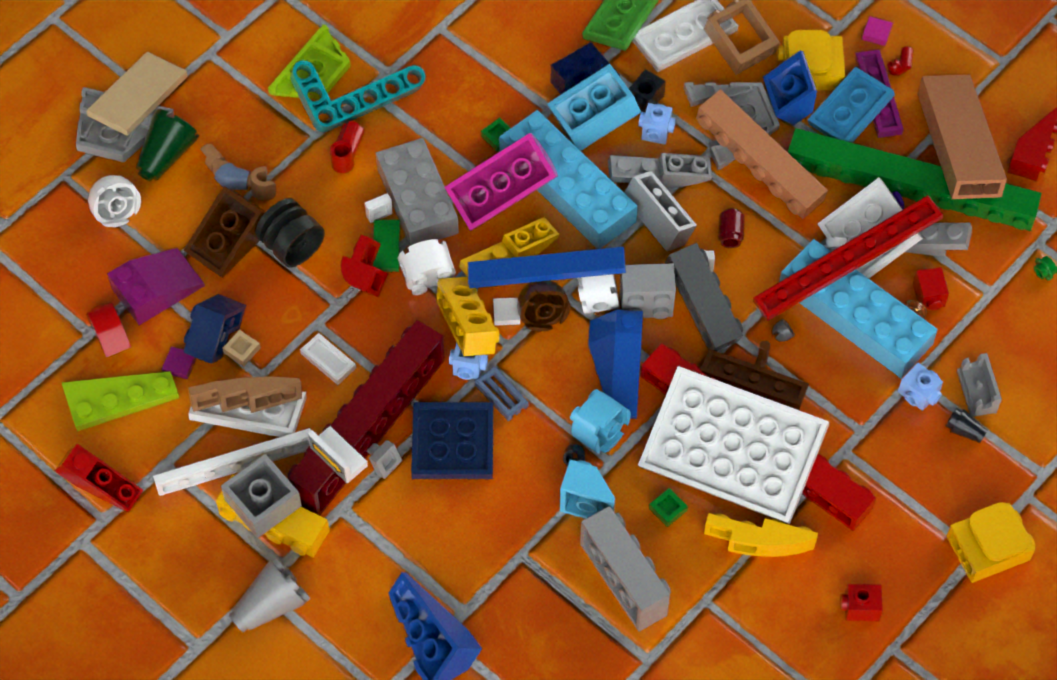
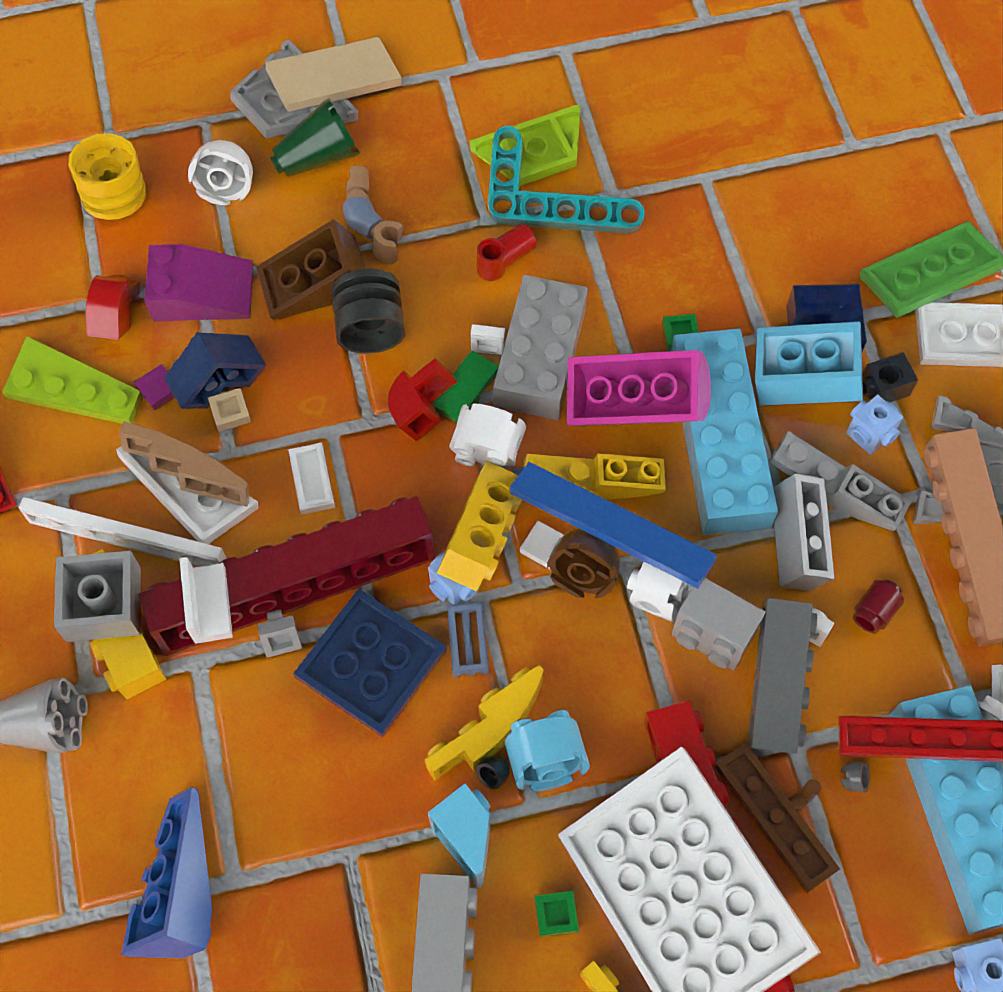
camera: 35 degrees right, 5 degrees up
(36, 246) = (107, 176): none -> yellow wheel
(554, 430) = (486, 738): none -> yellow slope
(616, 355) = (632, 678): blue wedge -> none

